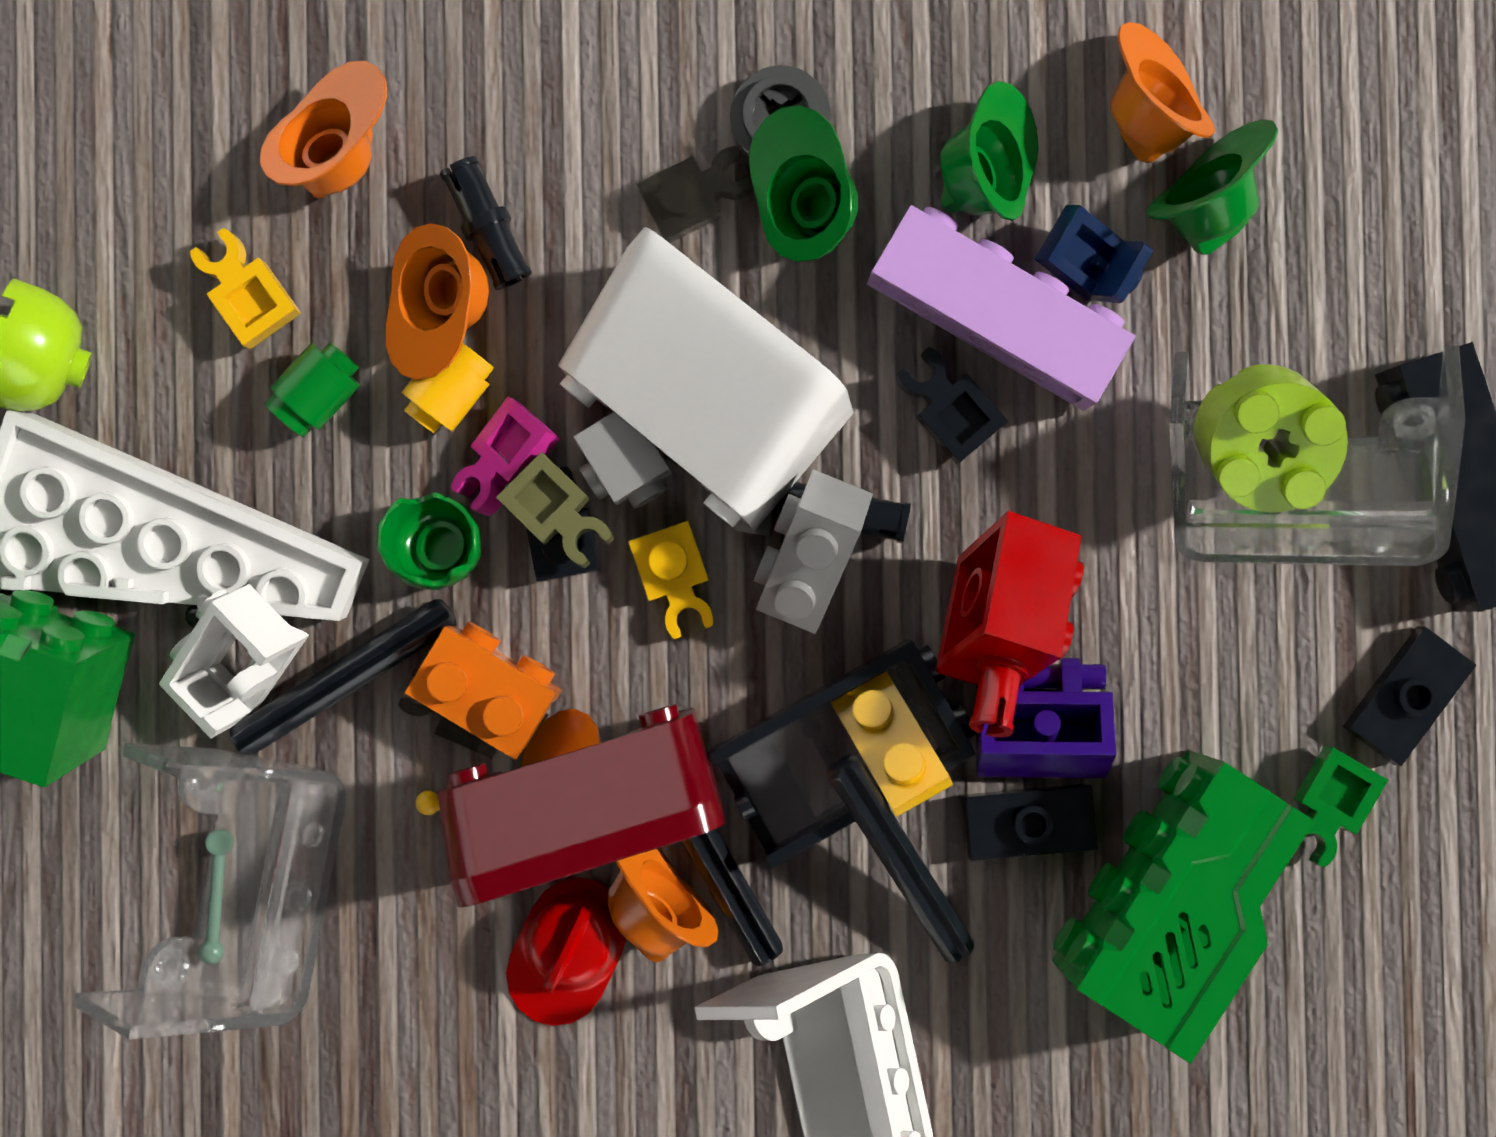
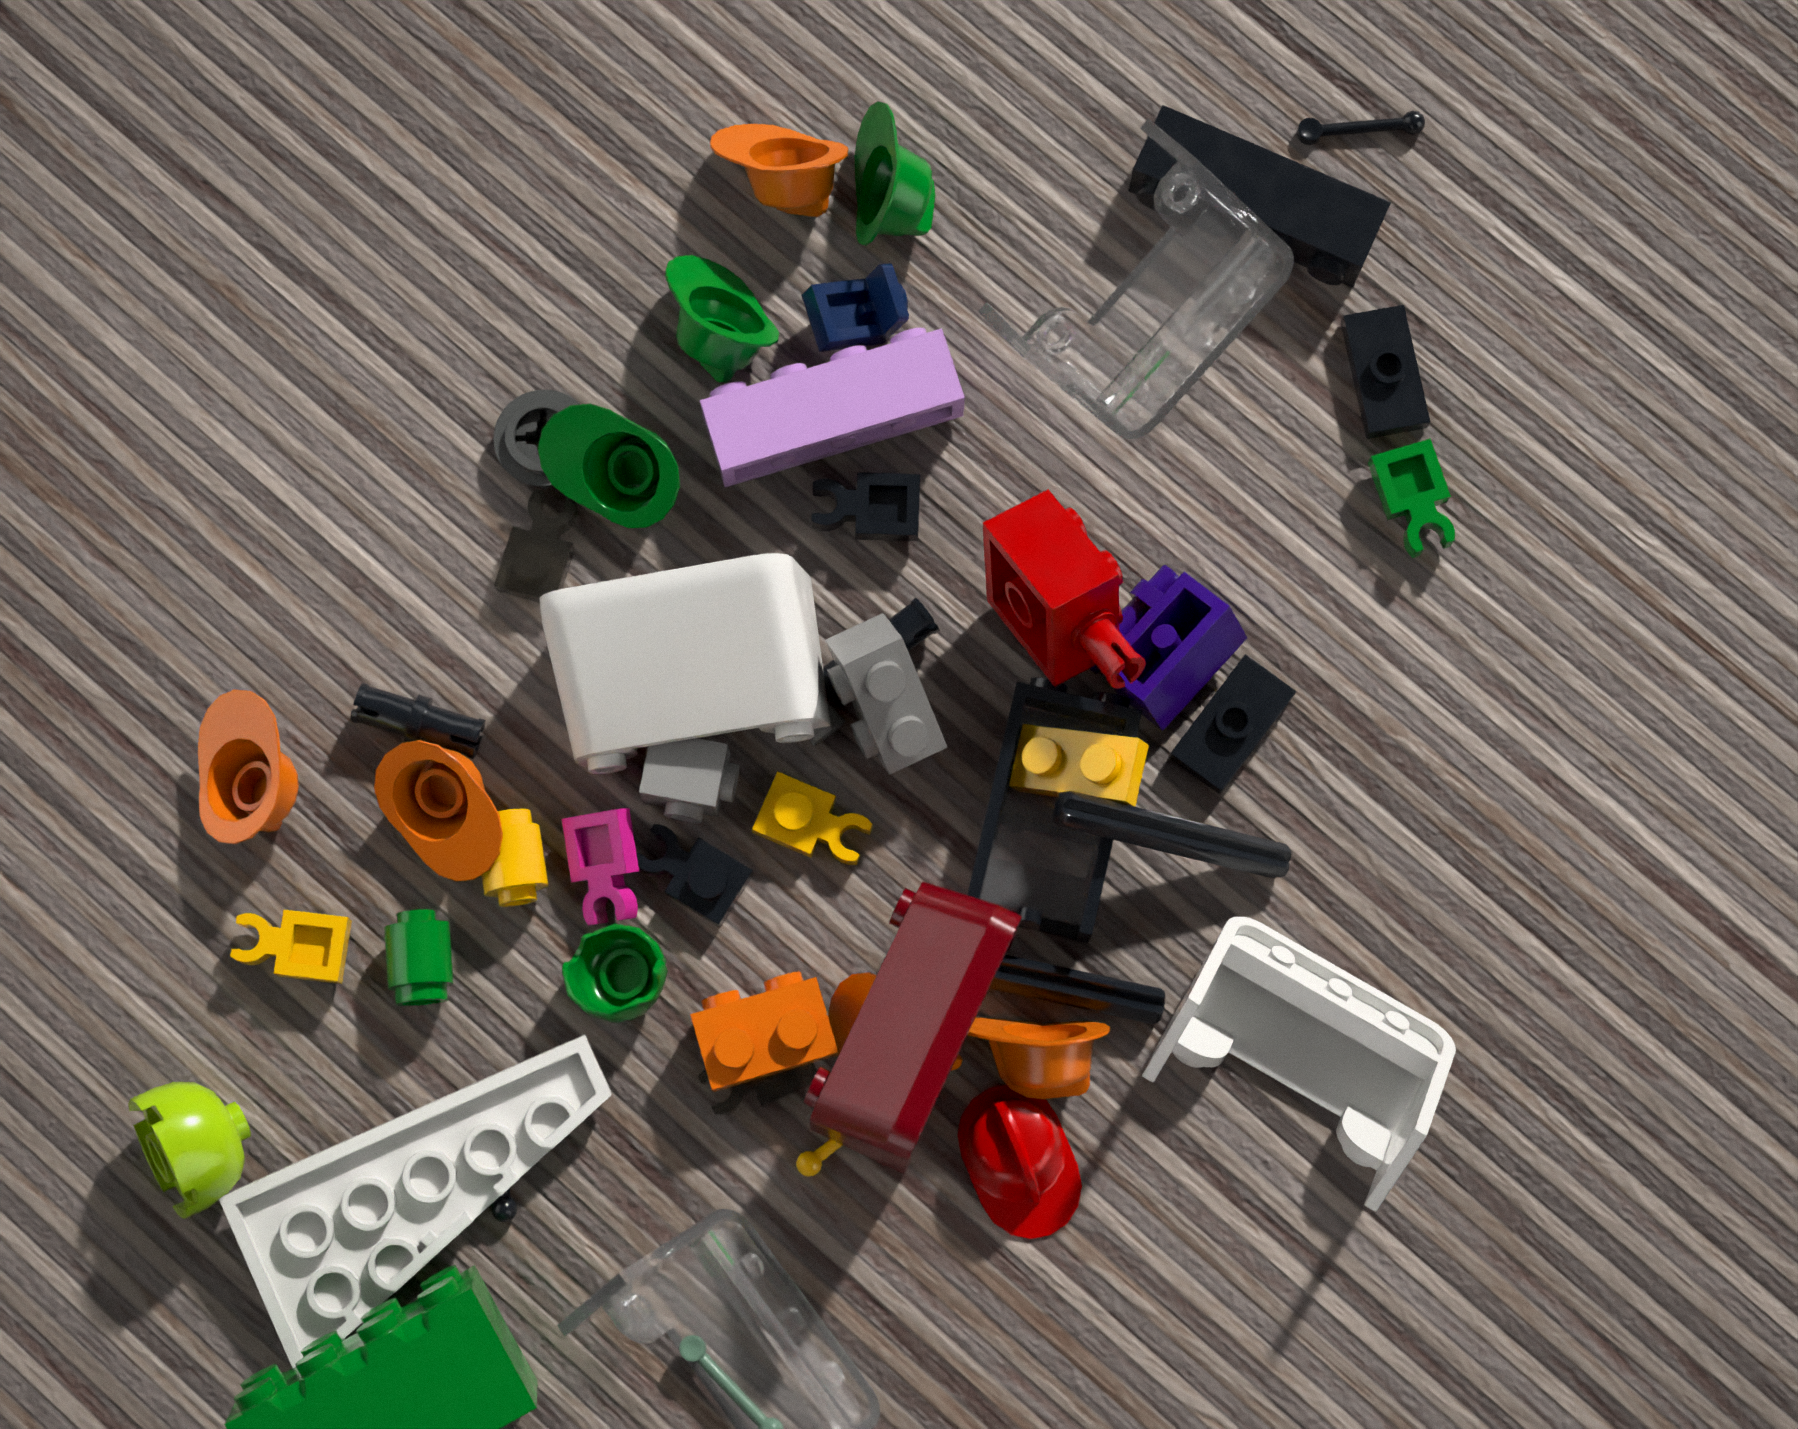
camera: 45 degrees left, 10 degrees down
(204, 685) = (564, 1248): white window -> none
(341, 678) = (654, 1137): black axle -> none
(549, 504) = (669, 856): olive plate -> none
(1183, 906) = (1386, 658): green piece -> none
(1295, 464) = (1135, 305): lime brick -> none

